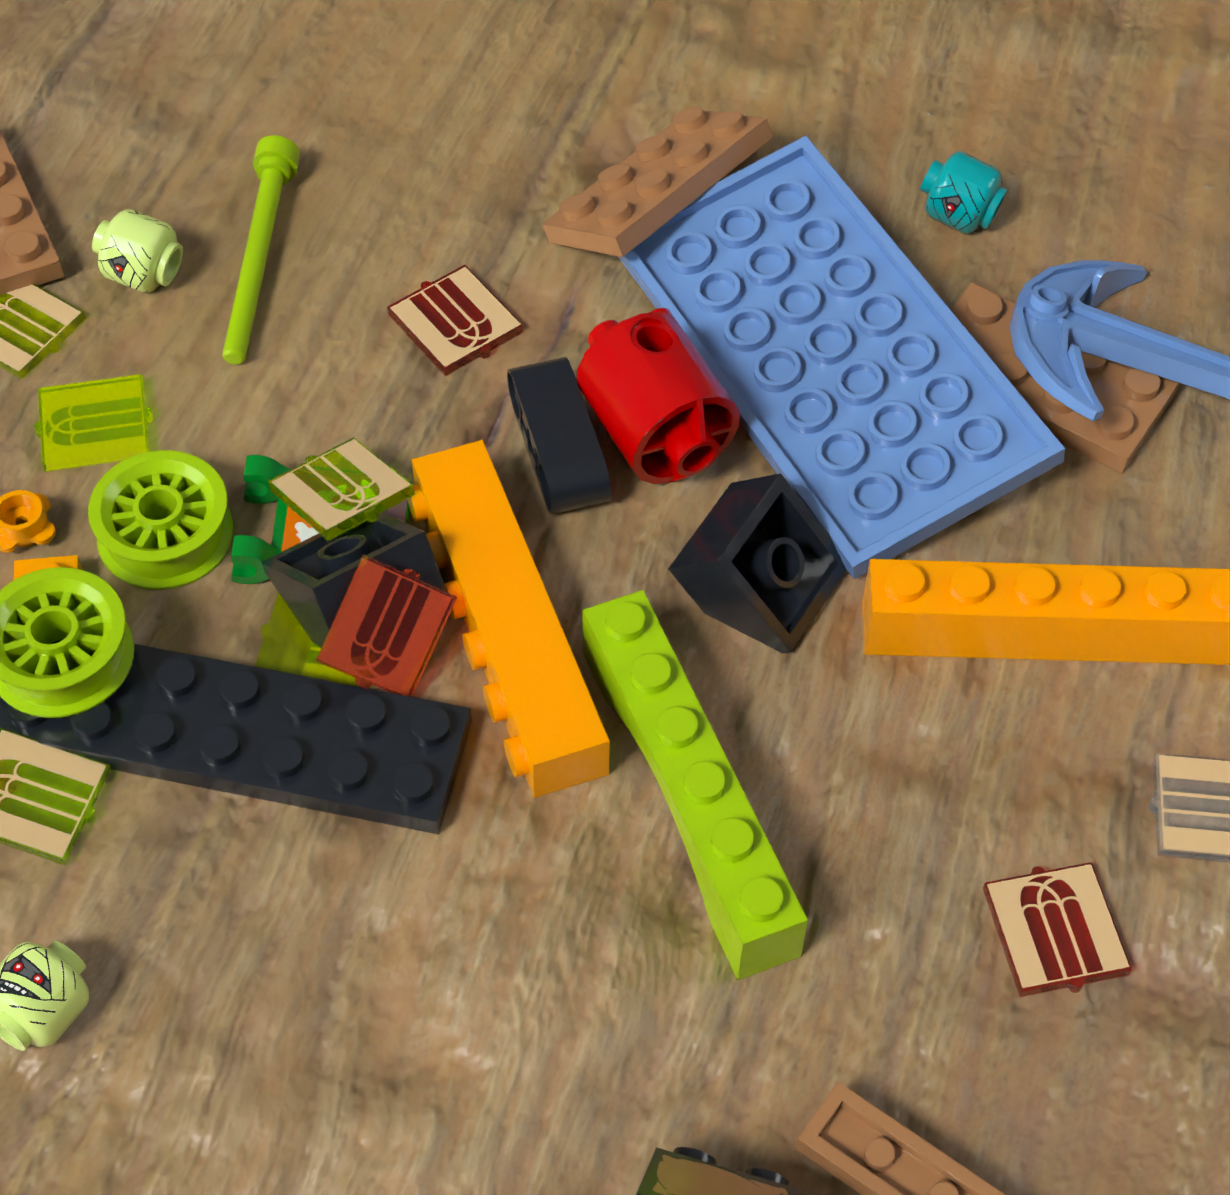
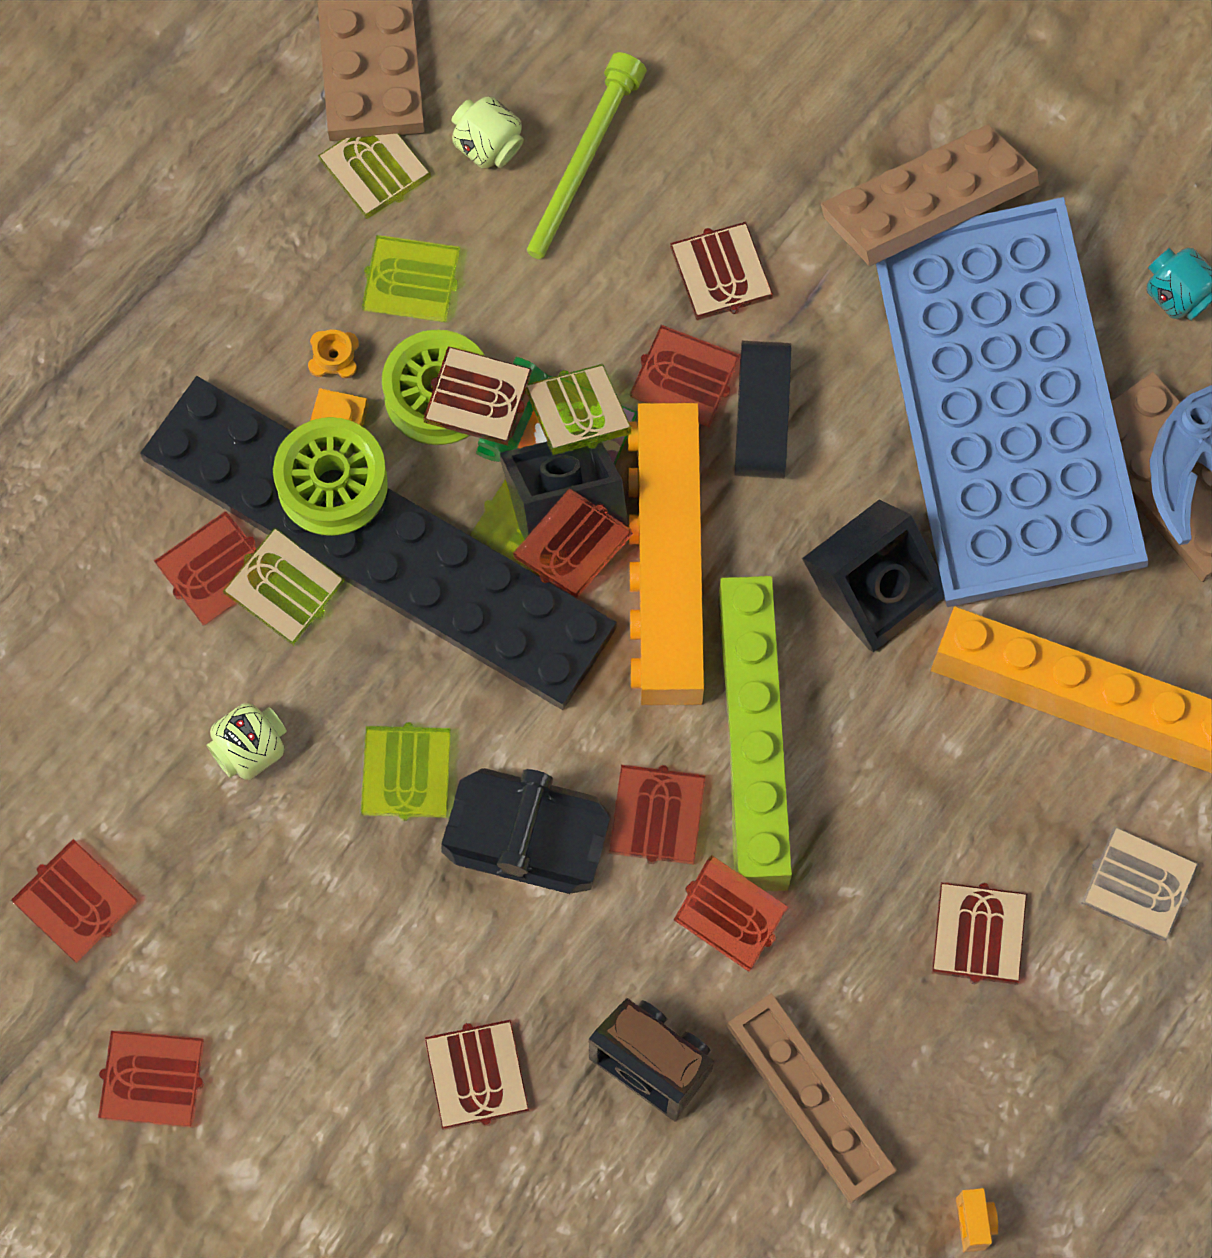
camera: 20 degrees right, 15 degrees up
(213, 506) = (477, 395): none -> piece
(260, 970) = (406, 771): none -> clear neon green piece
(443, 985) = (526, 830): none -> black shield
(450, 418) = (685, 372): none -> clear red piece
(603, 918) = (657, 814): none -> clear red piece
(656, 396) = (847, 407): red cylinder -> none
(746, 998) = (730, 913): none -> clear red piece

